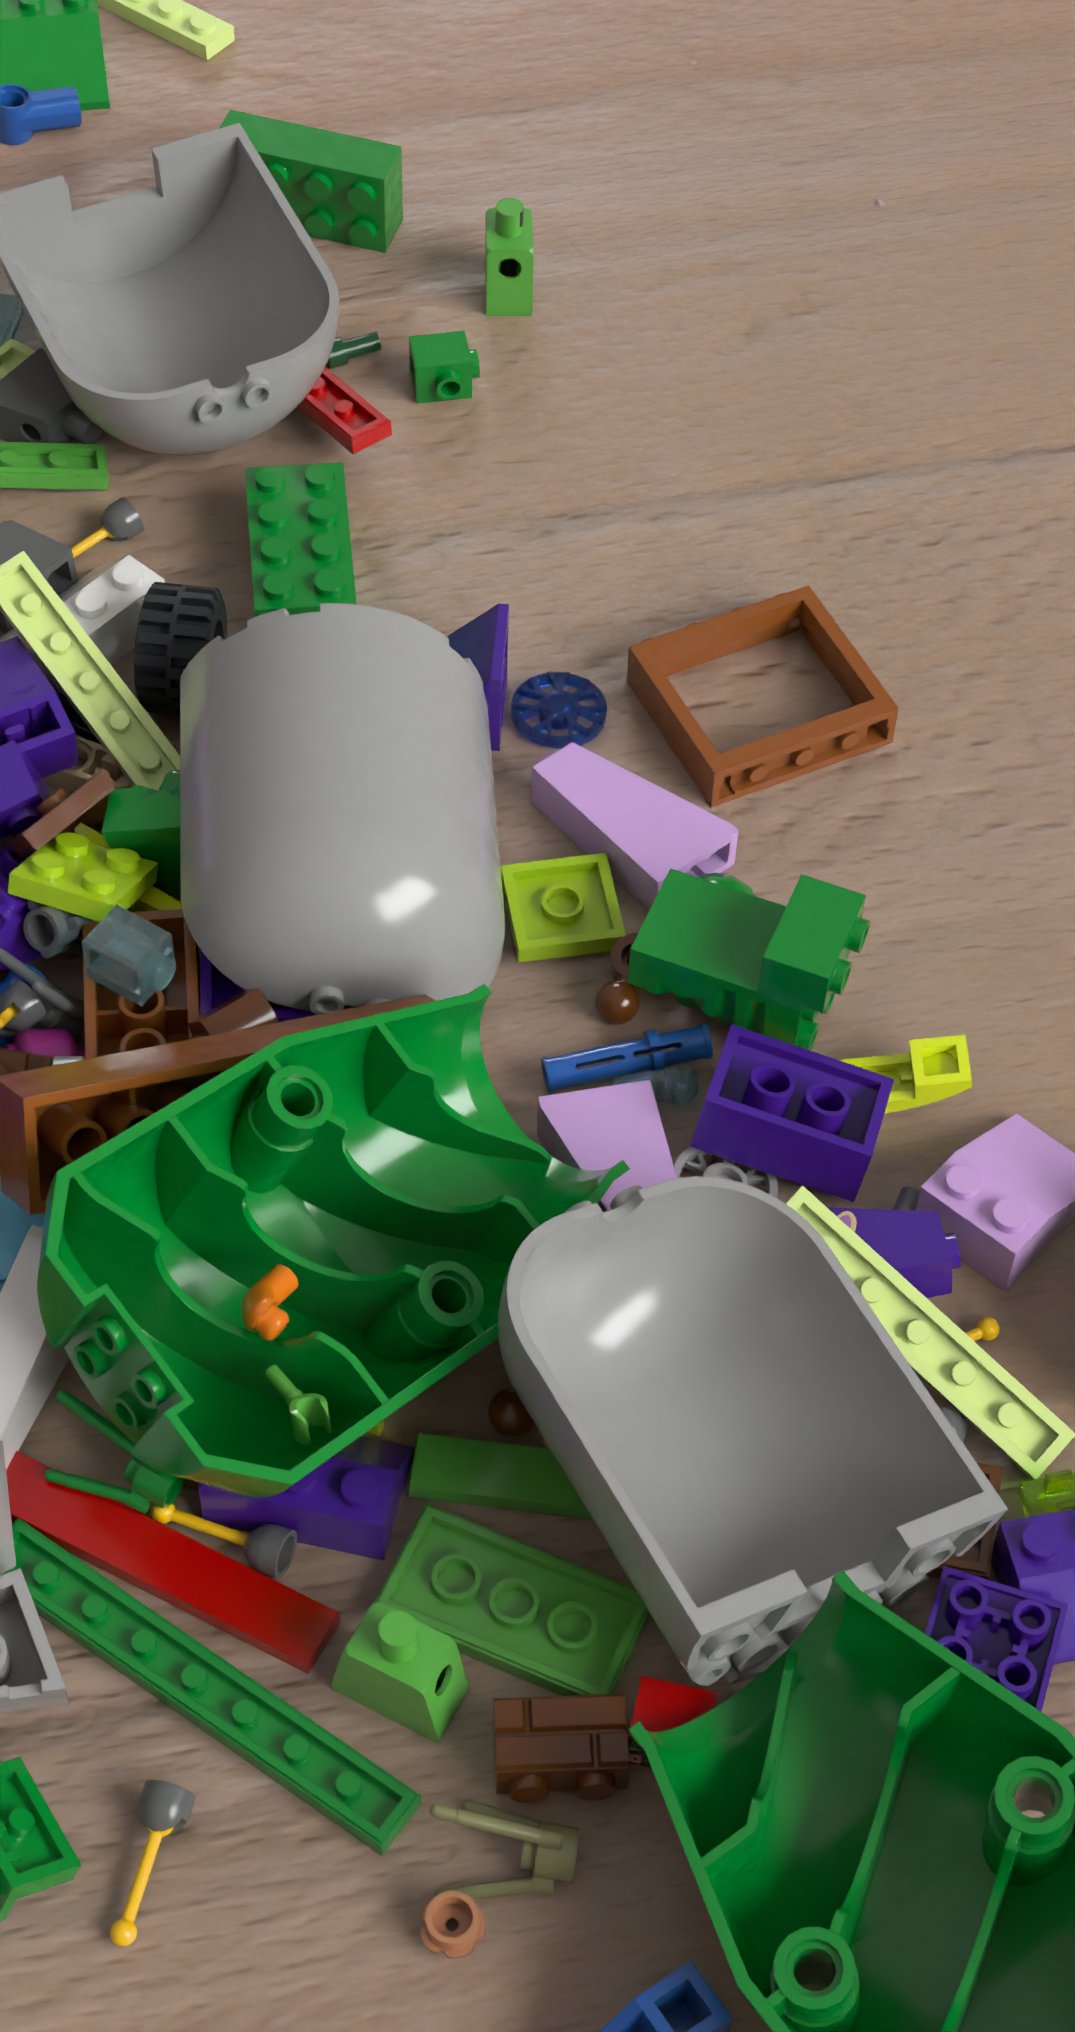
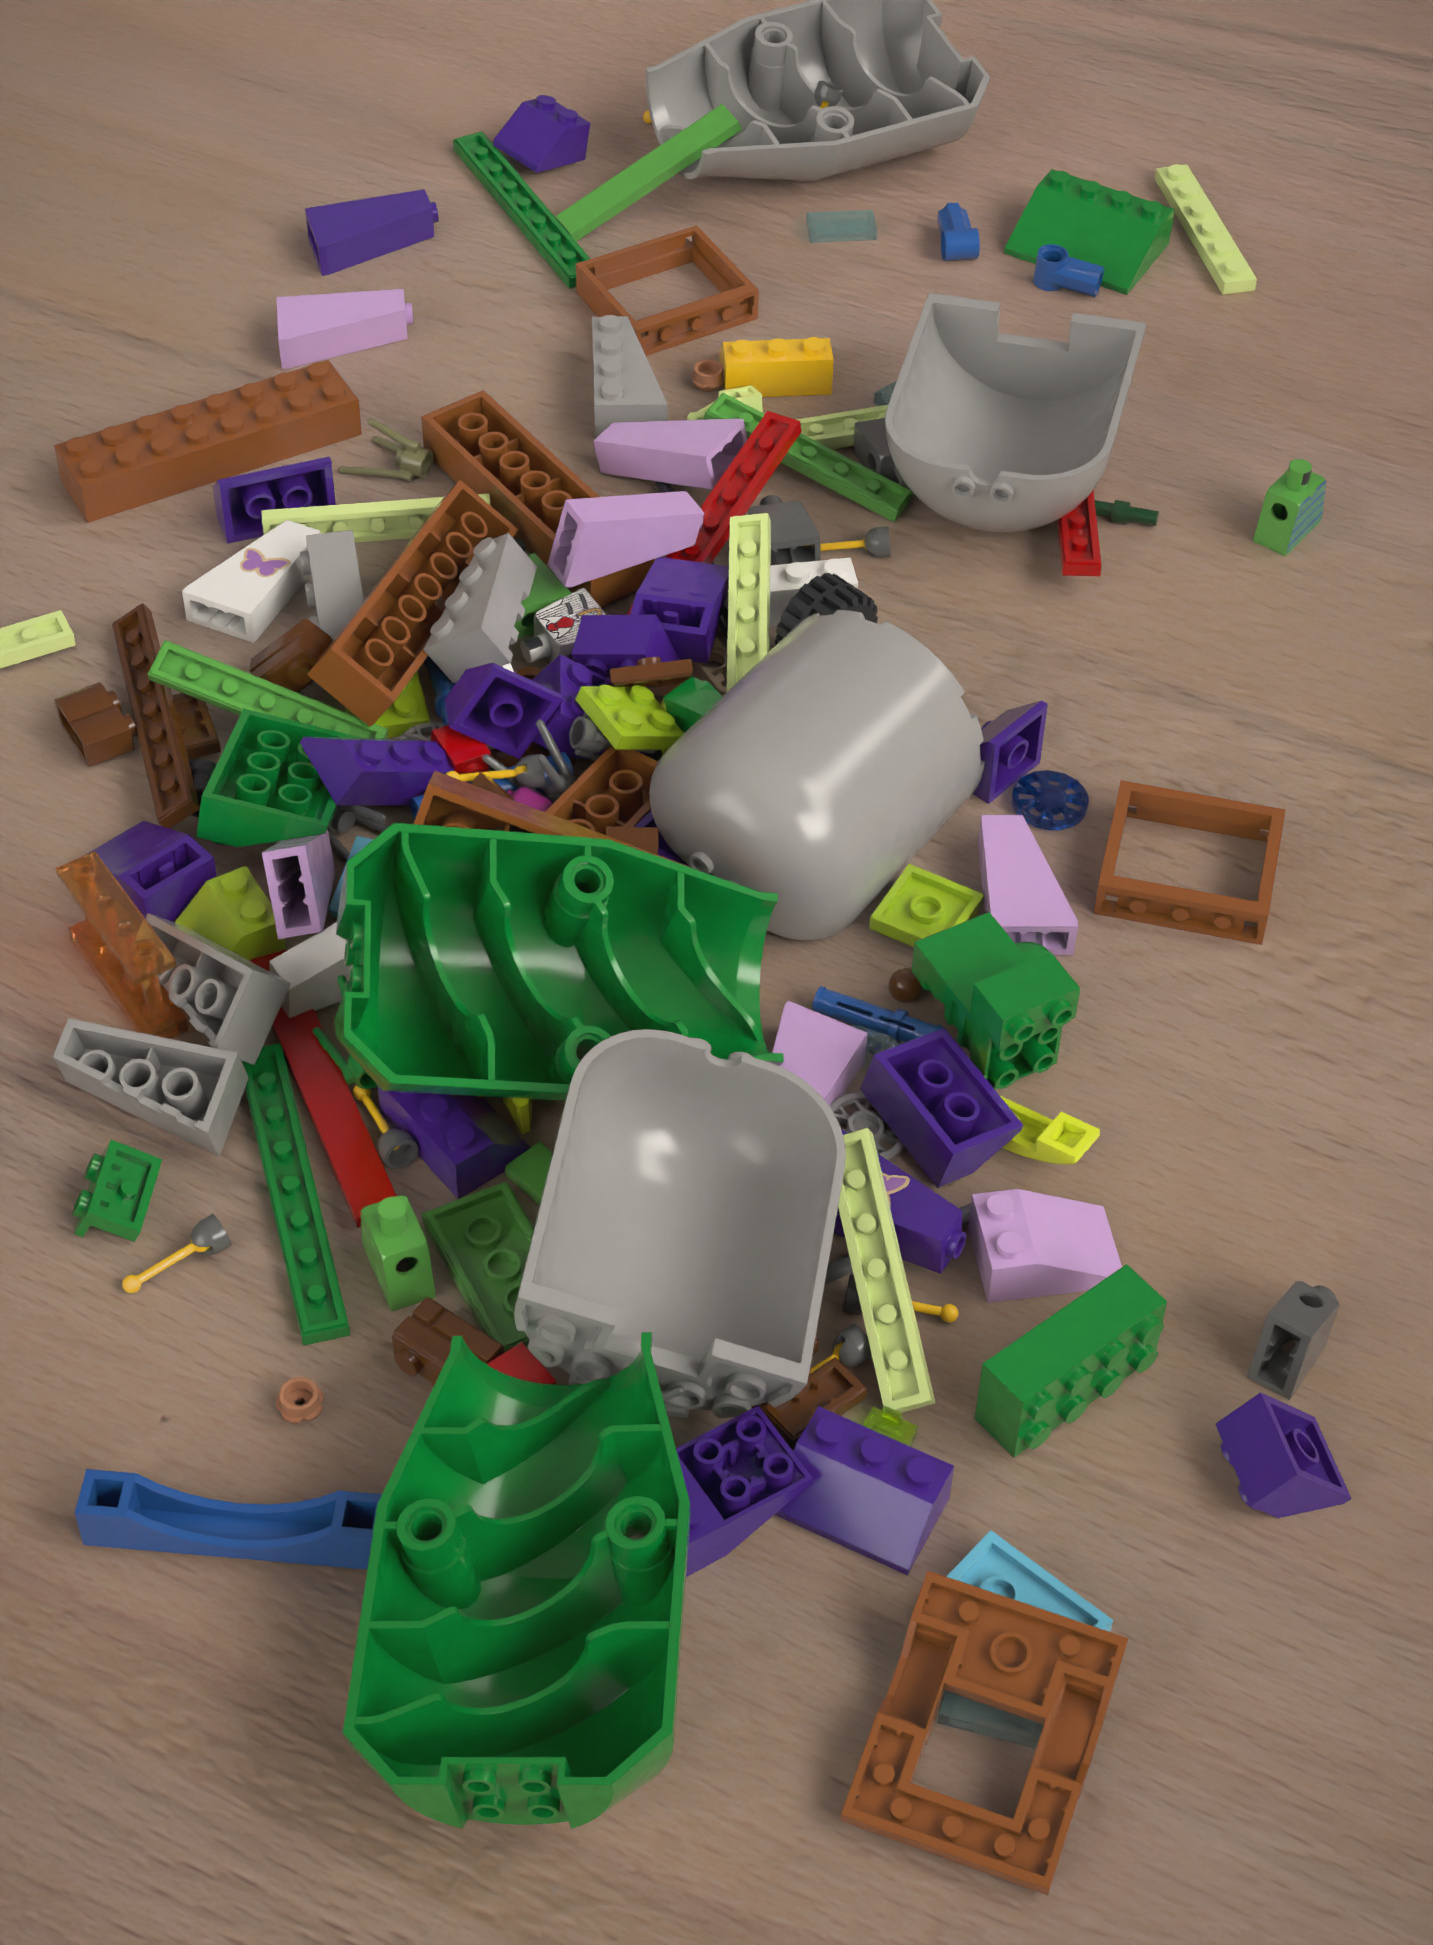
camera: 40 degrees right, 5 degrees down
(129, 955) = (611, 772): clear light blue brick -> none
(261, 1302) = (471, 988): orange arm -> none
(299, 537) = (974, 611): green brick -> none
(304, 1408) = (448, 1058): bright green hand -> none
(334, 181) = (1199, 395): green brick -> none
(442, 366) = (1180, 553): green brick -> none
(546, 1848) = (385, 1397): olive plant -> none

